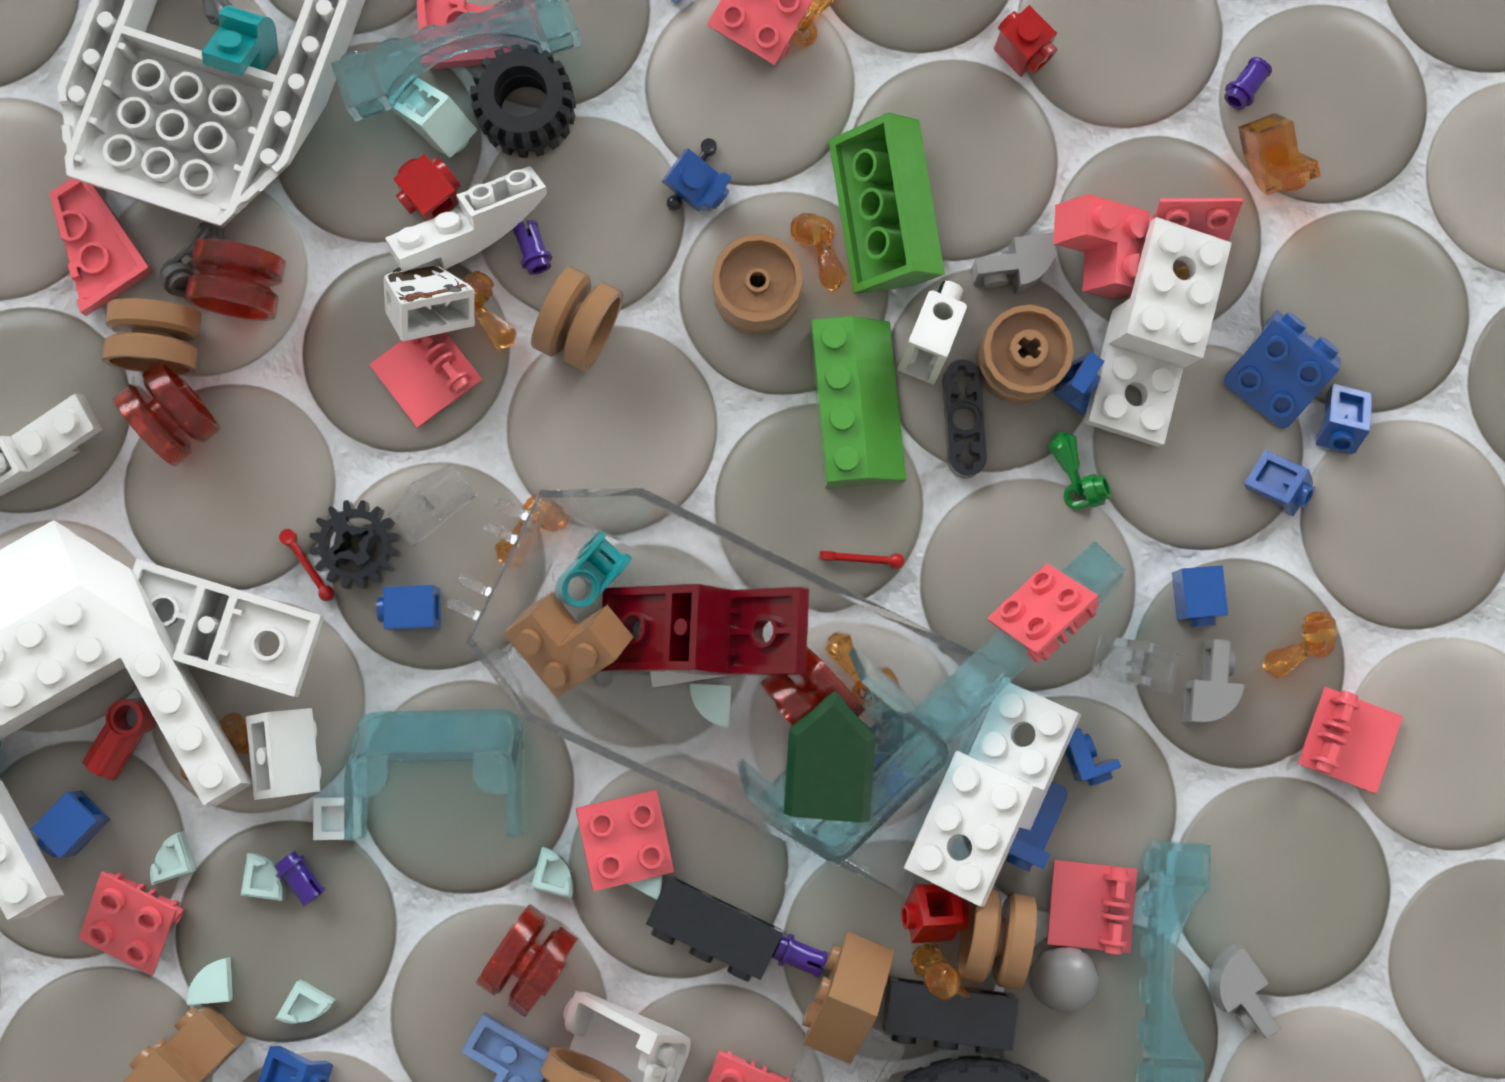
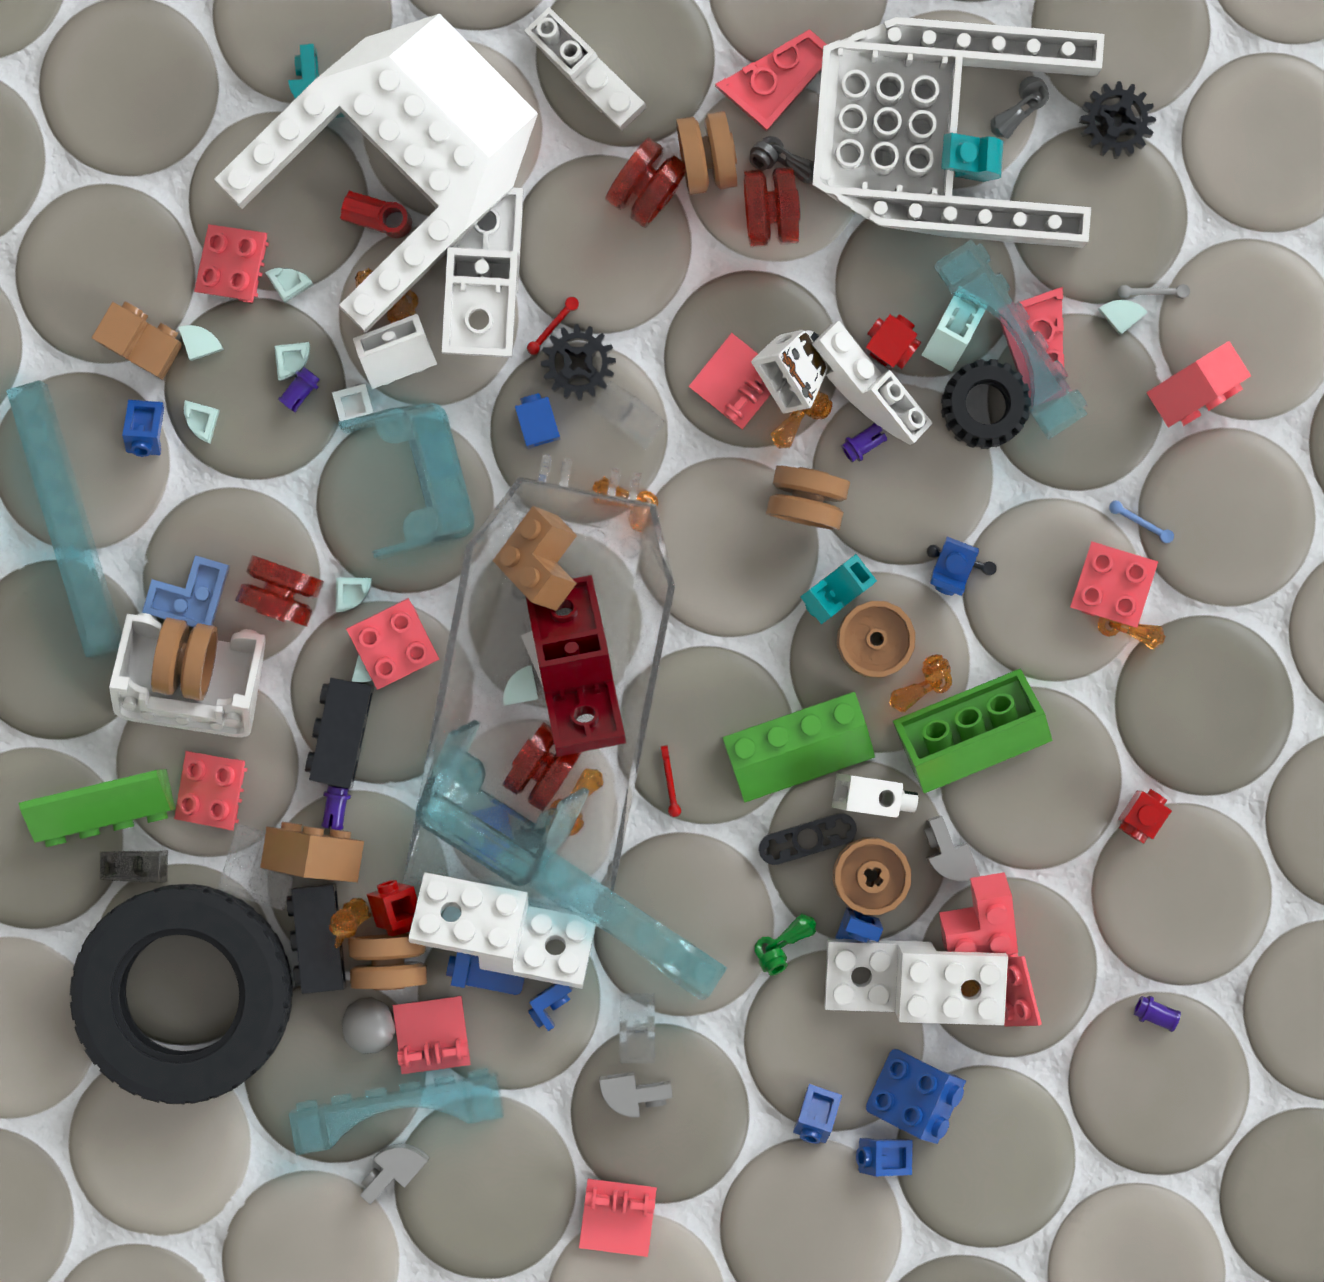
camera: 70 degrees right, 5 degrees up
(69, 825) = (296, 194): blue brick -> none
(594, 569) = (604, 563): teal piece -> none
(690, 313) = (838, 589): none -> teal brick
(830, 764) = (490, 793): dark green tile -> none
(1044, 610) = (657, 937): coral hinge -> none
(1200, 595) = (705, 1067): blue brick -> none
(1274, 156) = (1096, 1049): clear orange brick -> none
(1316, 629) = (702, 1170): clear orange piece -> none

